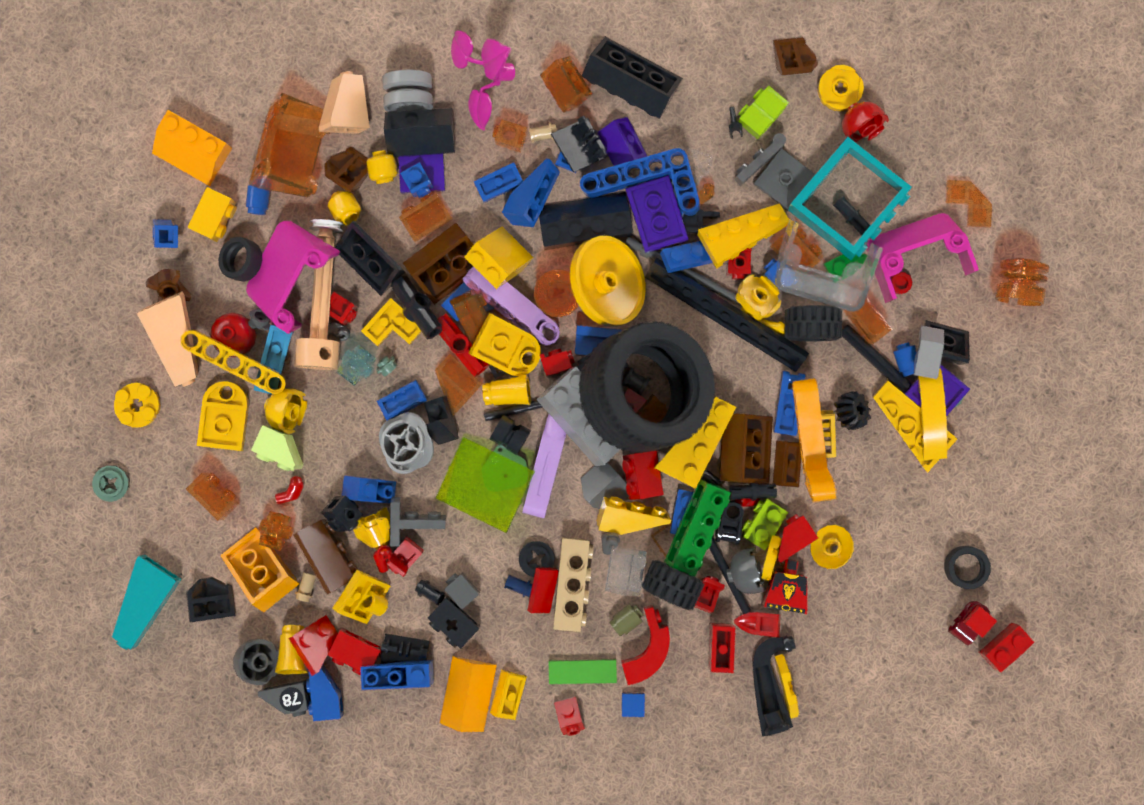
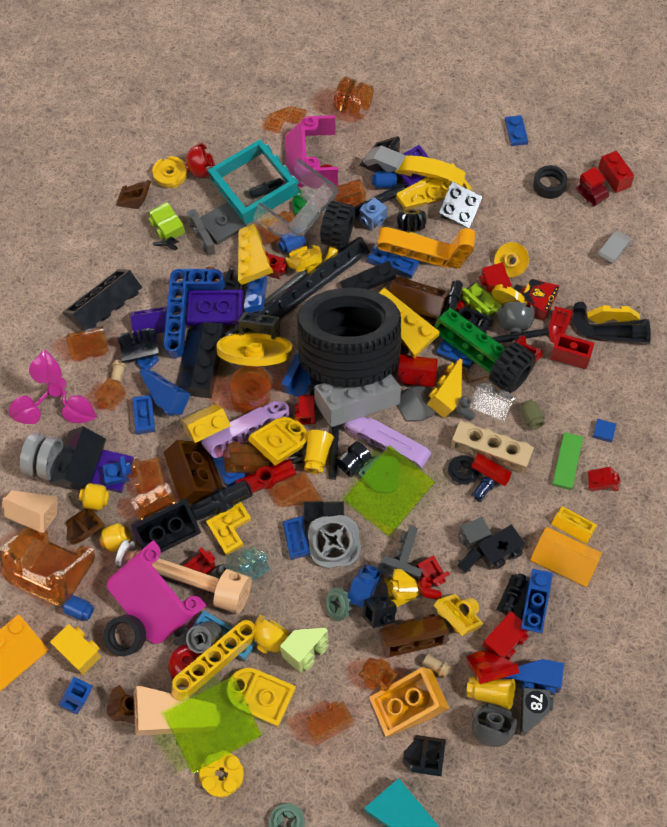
camera: 75 degrees left, 25 degrees down
(173, 381) = (212, 724): none -> clear neon green piece
(256, 343) = (203, 636): none -> dark grey wheel
(293, 491) = (347, 652): red arm -> none
(338, 467) = (333, 608): none -> sand green gear
(386, 366) = (262, 541): sand green plate -> none
(391, 236) = (153, 501): none -> clear orange brick
(646, 275) = (259, 324): none -> black hinge
(648, 662) = (564, 400): red arch -> none
(752, 382) = (371, 278): none -> black plate
(787, 464) = (437, 275): reddish brown slope -> none
(856, 360) = (373, 213): none -> medium blue brick
(891, 669) = (615, 246): none -> light grey slope
(894, 464) = (460, 205): none -> hinge
(1040, 505) = (516, 130): none -> blue plate

